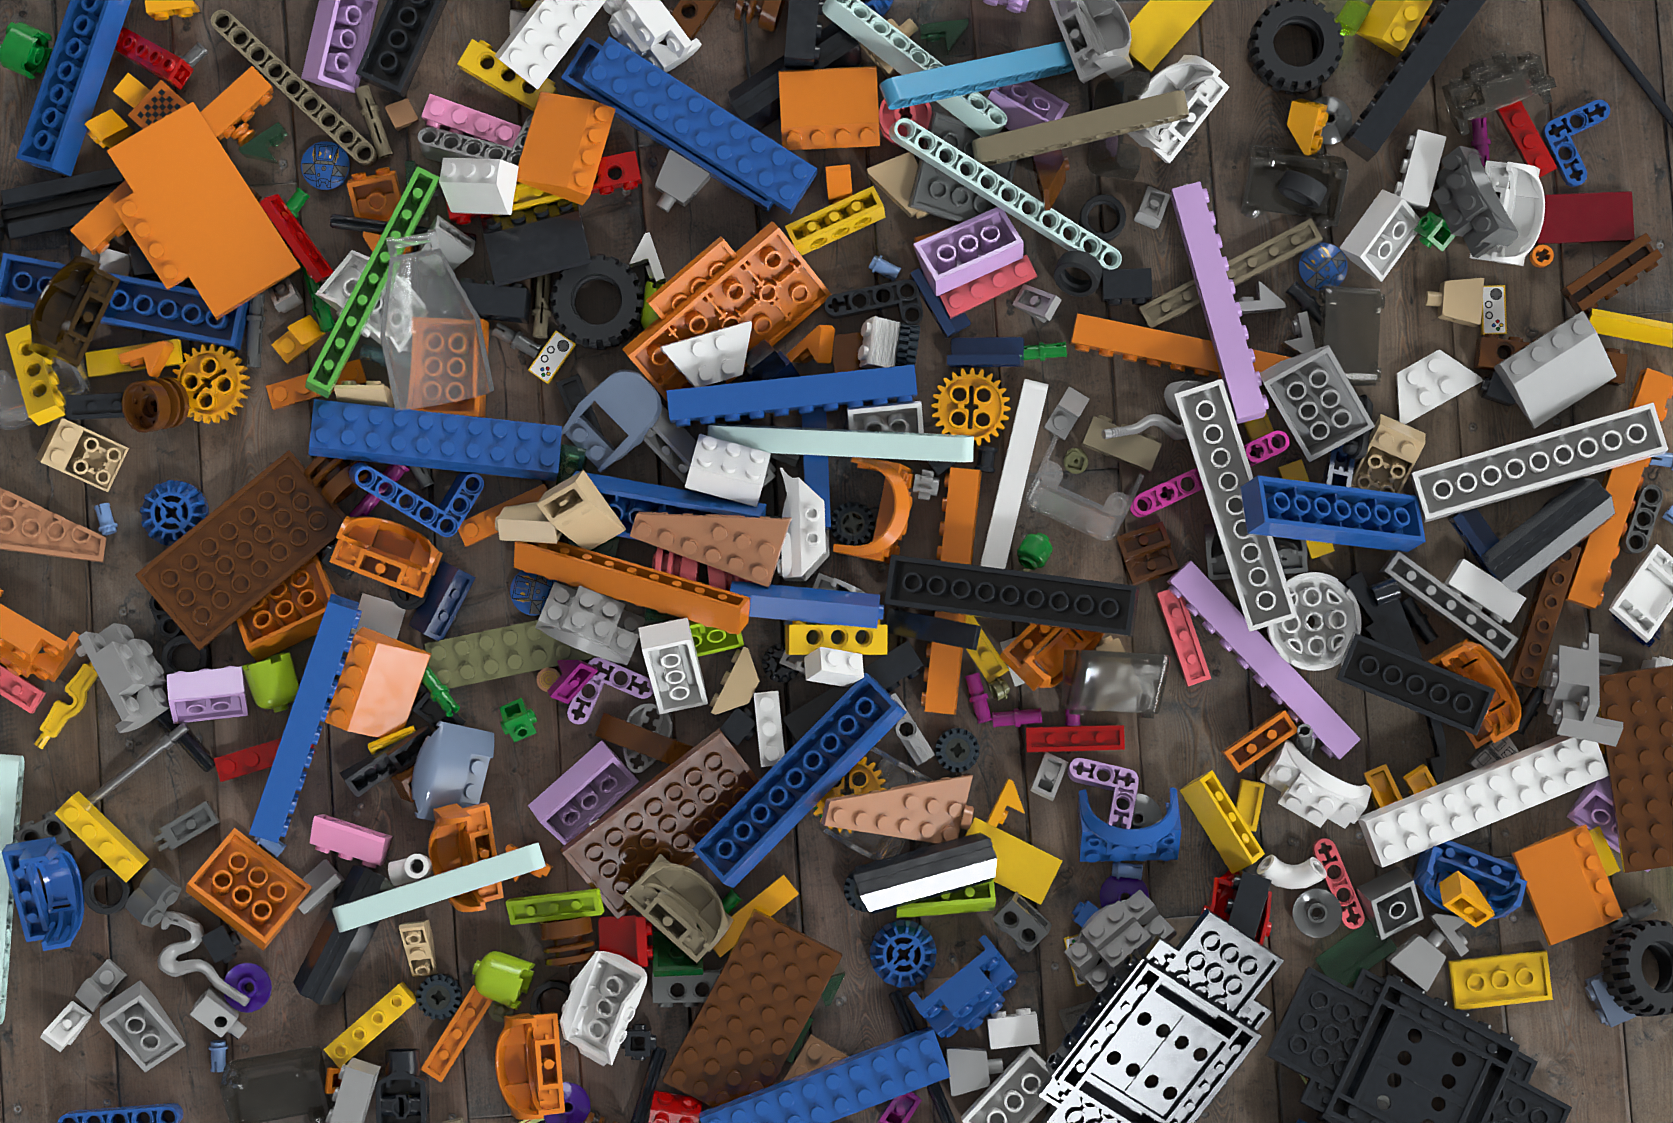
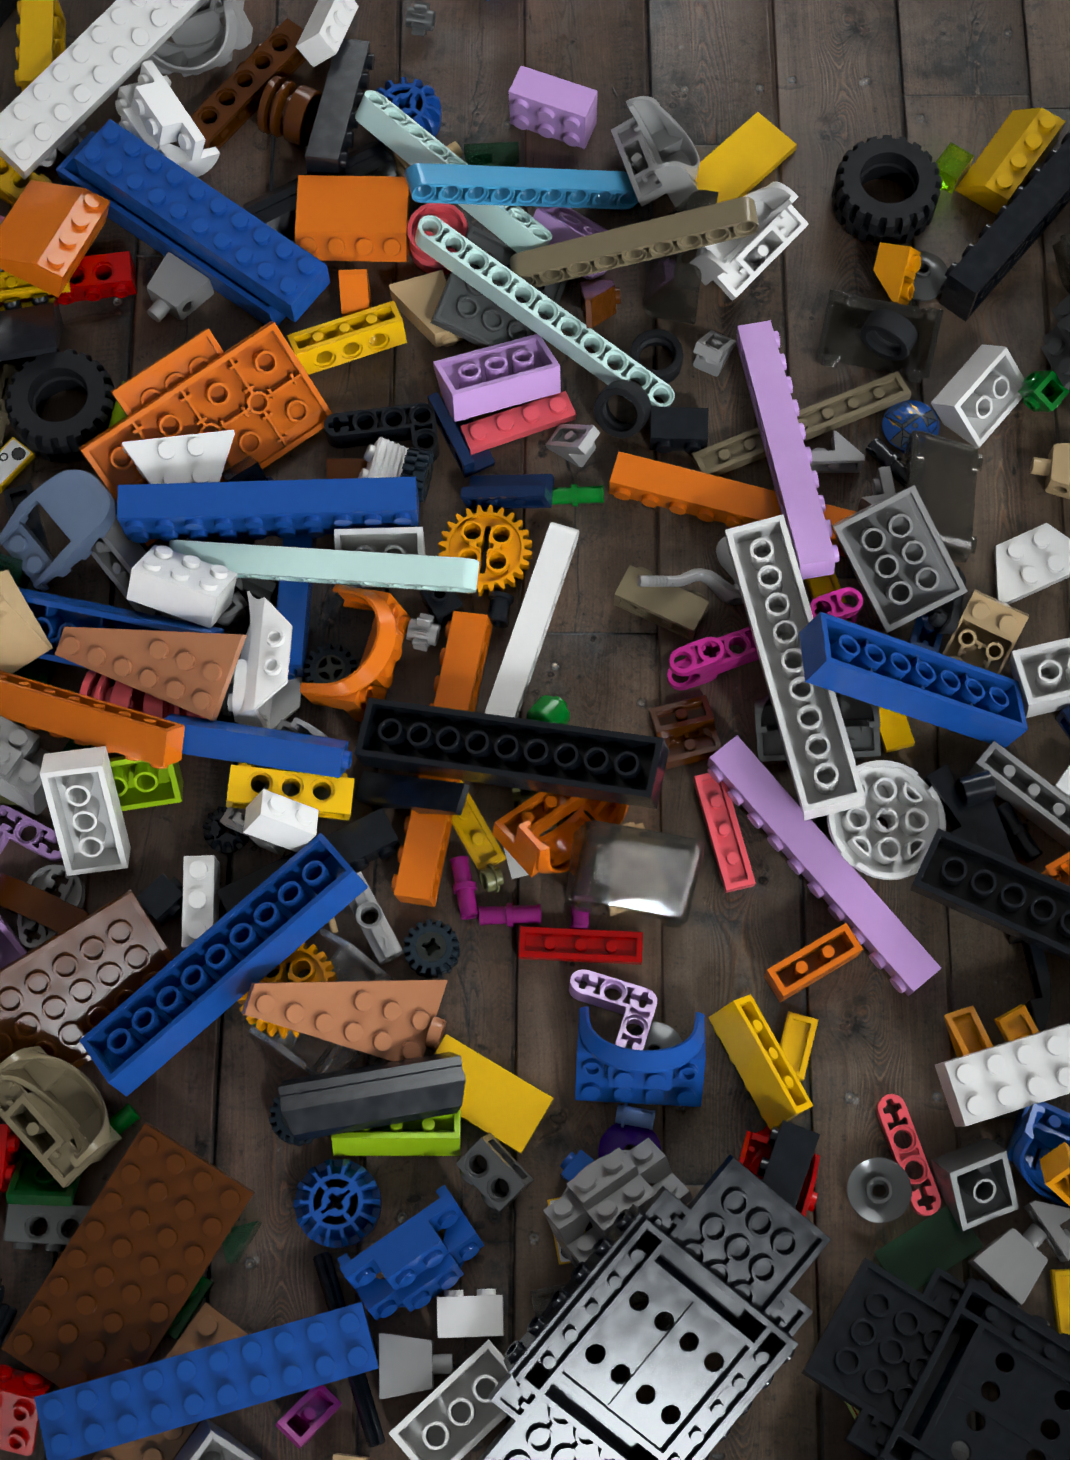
camera: 10 degrees right, 15 degrees down
(647, 253) = (125, 361): white slope -> none
(738, 684) = (167, 848): tan slope -> none
(767, 902) = (174, 1120): light orange slope -> none
(815, 345) = (308, 463): orange slope -> none
(884, 268) = (398, 394): medium blue pin -> none
(1007, 797) = (489, 1013): light orange slope -> none
(1048, 776) = (543, 988): light grey slope -> none
(1066, 413) = (599, 566): light grey slope -> none
(1075, 460) = (606, 618): olive tile -> none
(1075, 510) = (599, 670): clear windscreen -> none
(1292, 876) = (851, 1139): white cylinder -> none
(1305, 742) = (870, 968): dark grey pin -> none
(1313, 791) = (881, 1027): white piece -> none
(1420, 168) = (1028, 324): white brick -> none

